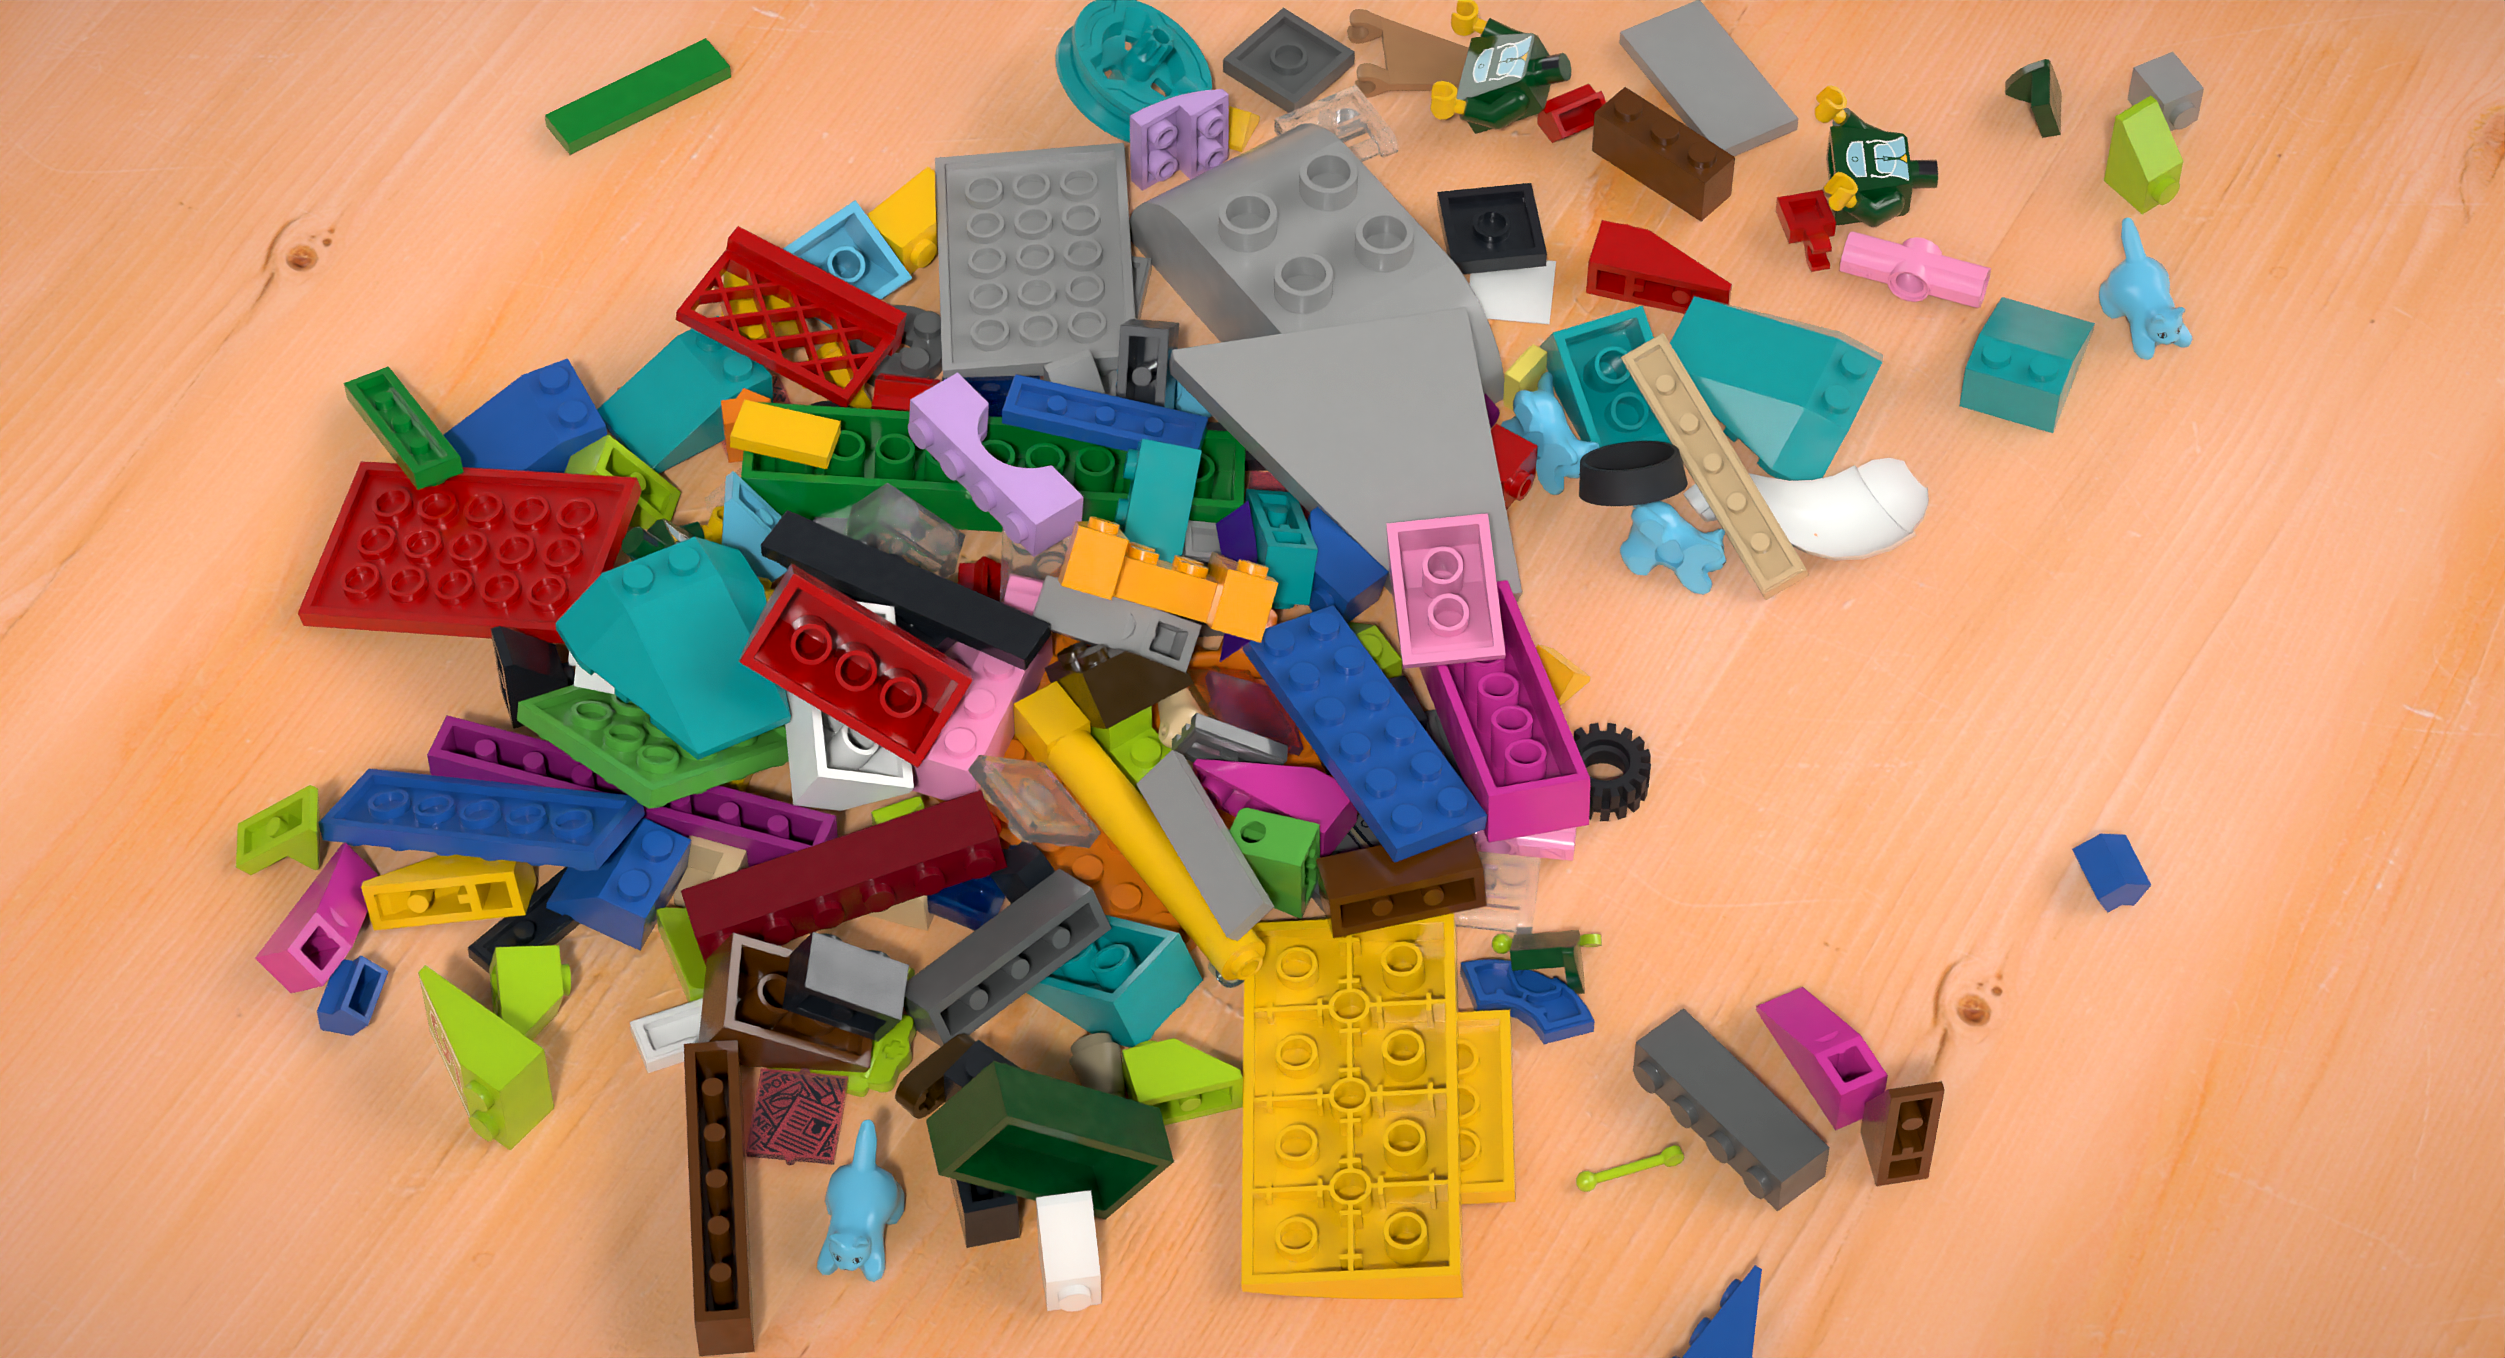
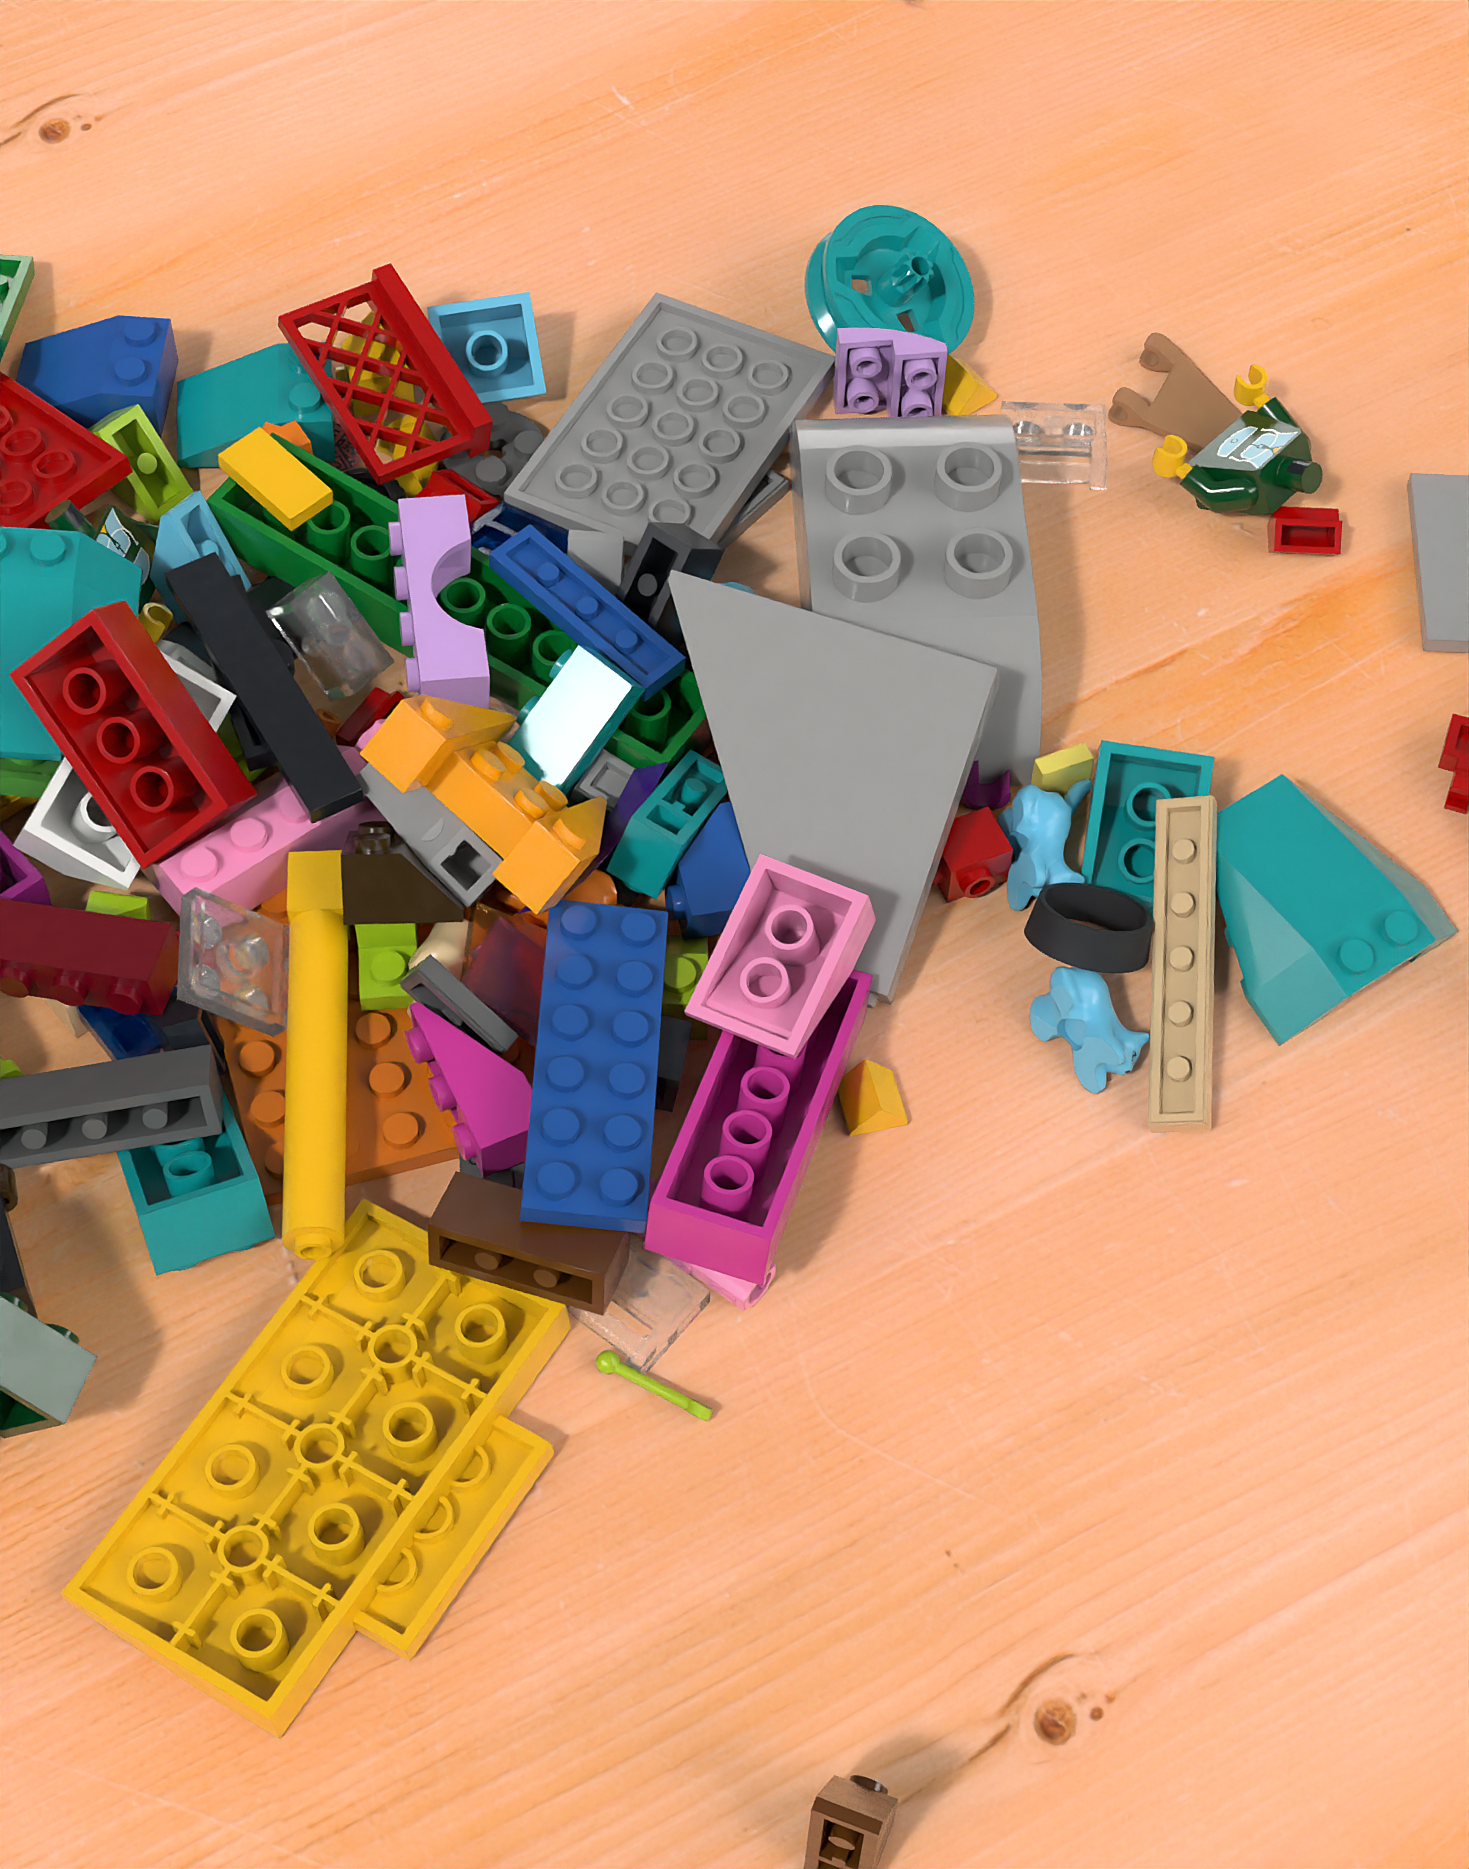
camera: 30 degrees right, 5 degrees up
(637, 96) = (445, 118): green tile -> none
(910, 221) = (580, 339): yellow slope -> none
(1098, 1063) = (106, 1279): dark tan cone -> none
(1180, 1080) = (162, 1331): lime slope -> none
(1205, 845) = (341, 1100): light grey tile -> none
(1281, 856) = (410, 1141): bright green torso -> none
(1288, 61) = (1060, 353): dark grey plate -> none
(1492, 228) = (1138, 608): black plate -> none
(1516, 293) = (1122, 678): white sticker -> none
(1534, 999) = (591, 1434): blue tile -> none
(1550, 951) = (638, 1402): dark green tile -> none
(1622, 753) = (842, 1200): black tyre -> none
(1648, 271) = (1263, 722): red slope -> none
(1663, 154) = (1365, 614): reddish brown brick -> none
(1670, 1157) = (500, 1681): lime hinge -> none
(1730, 1110) = (698, 1693): dark grey brick -> none
(1825, 1054) = (841, 1683): dark pink slope -> none
(1852, 512) = (1306, 1087): white animal -> none
(2112, 870) = (1312, 1647): blue piece -> none

